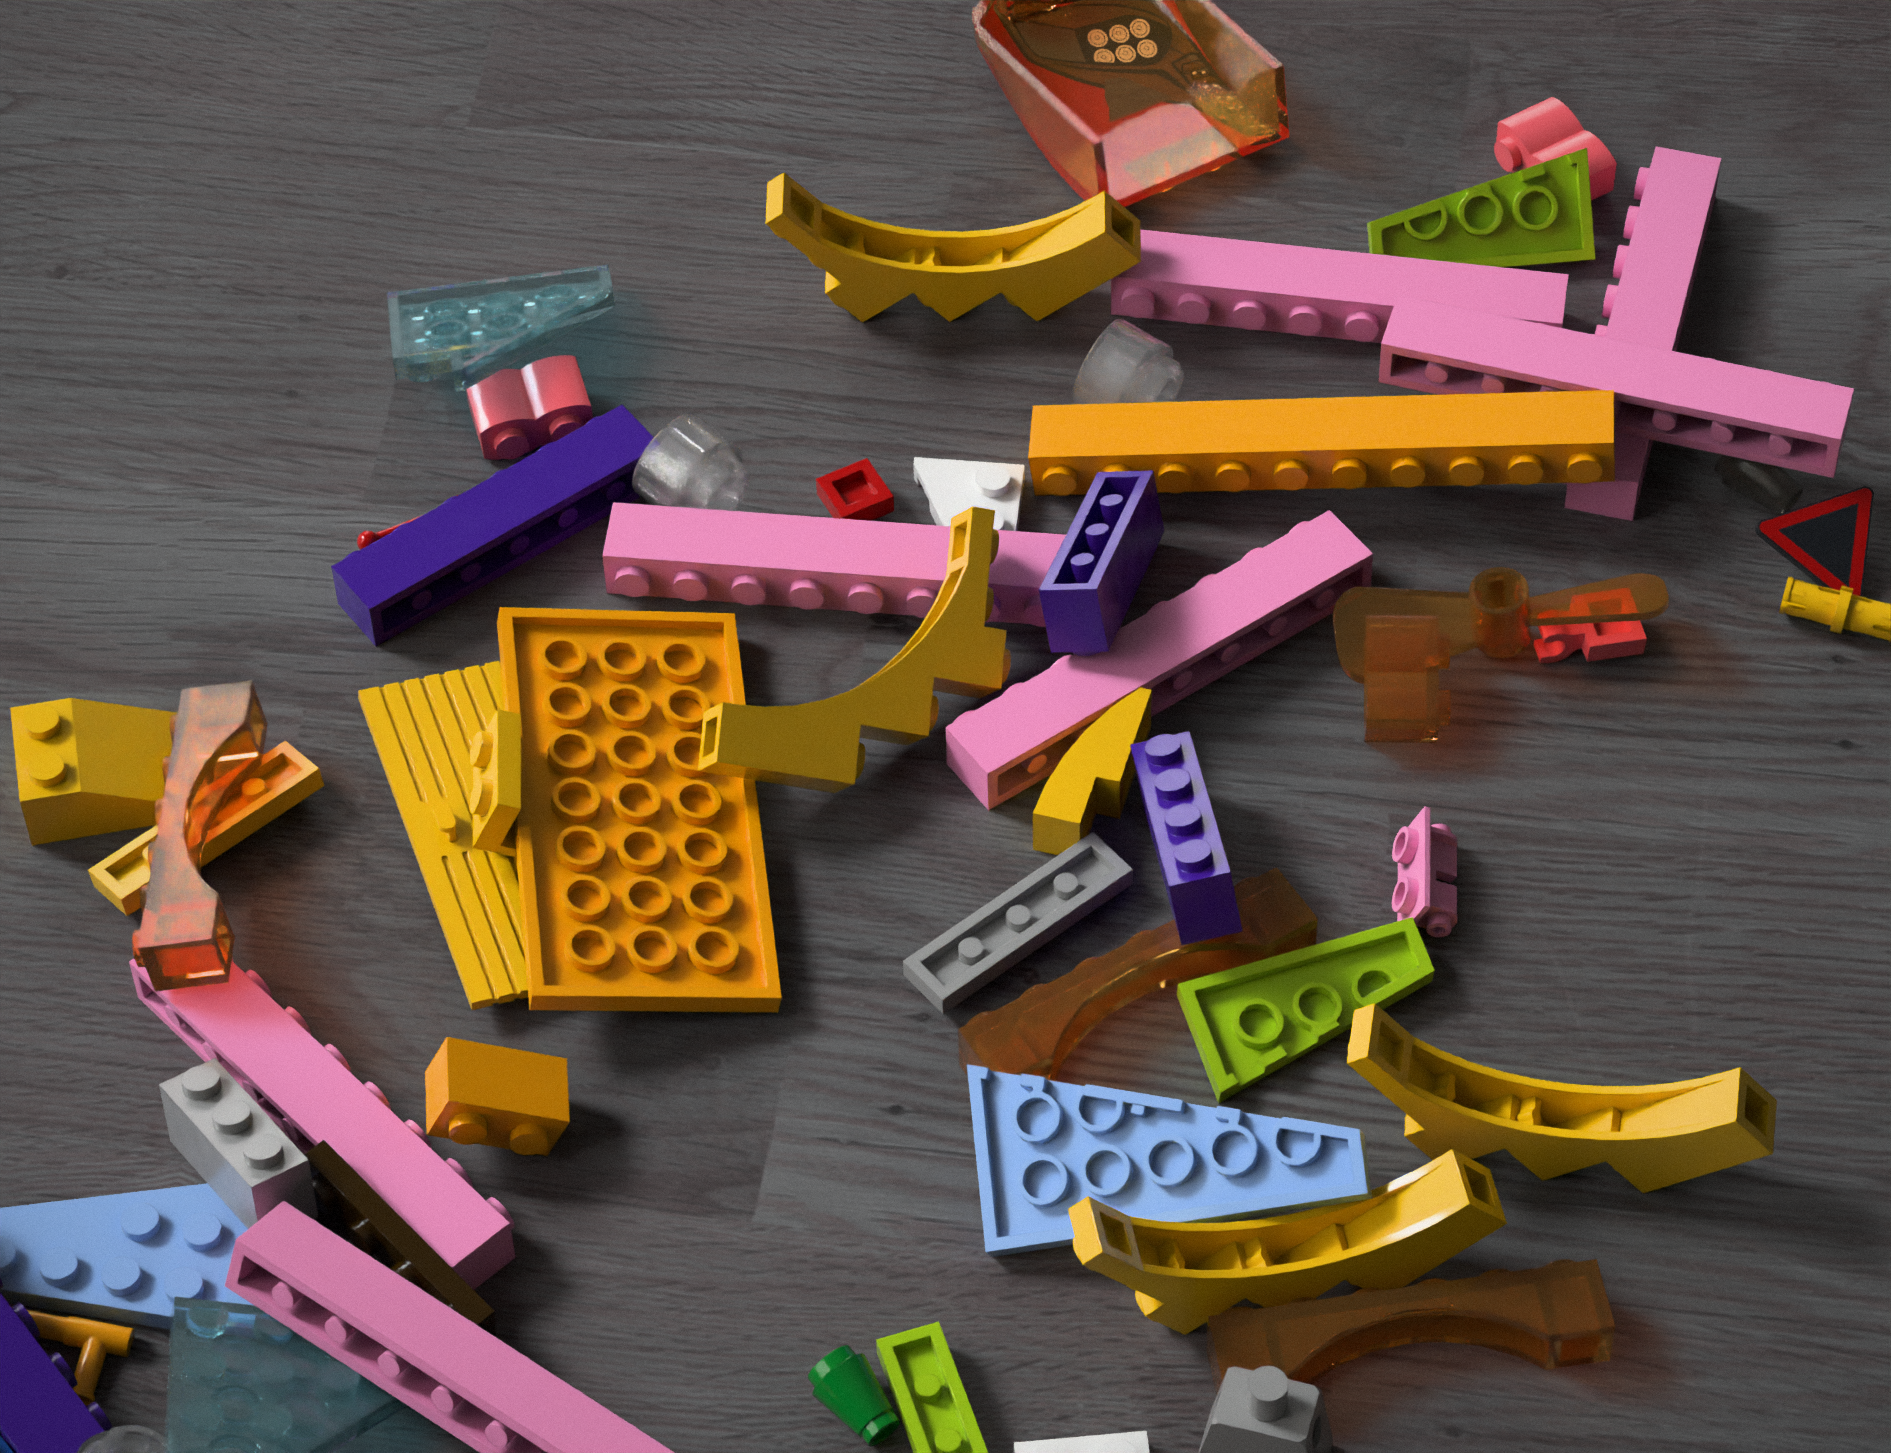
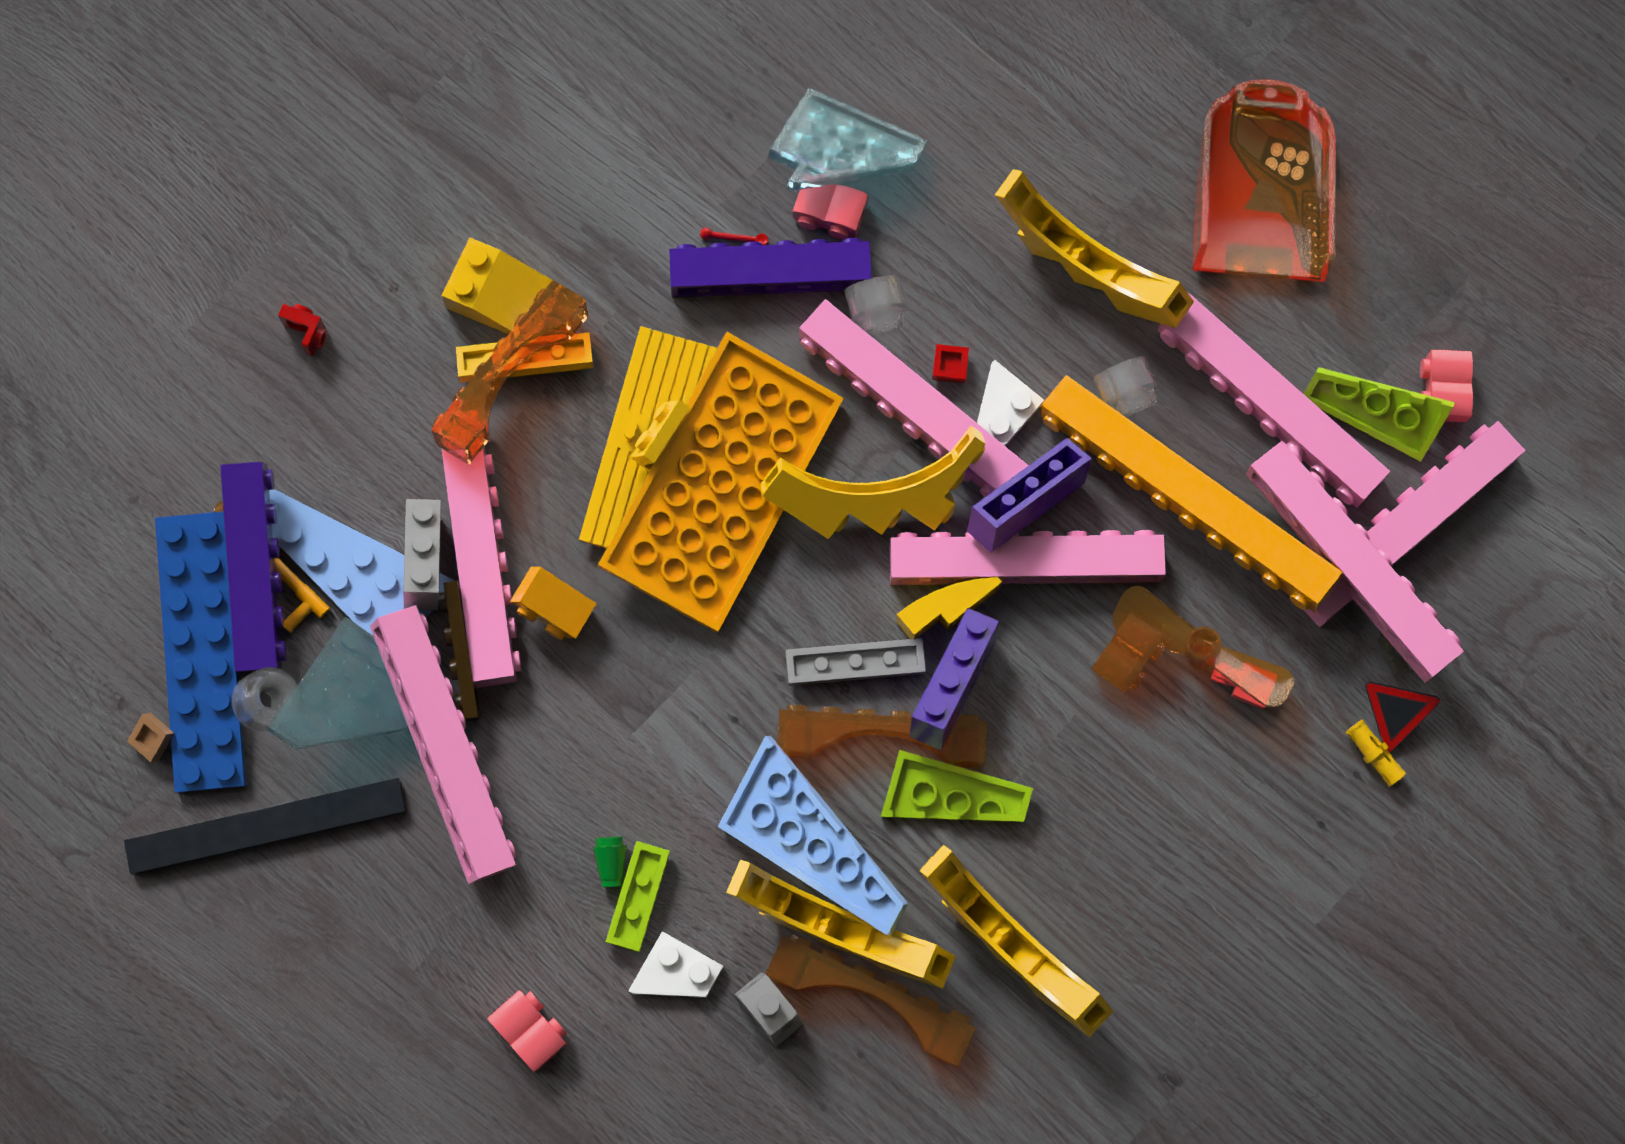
camera: 30 degrees right, 25 degrees up
(1422, 857) = (1069, 753): bright pink hinge -> none

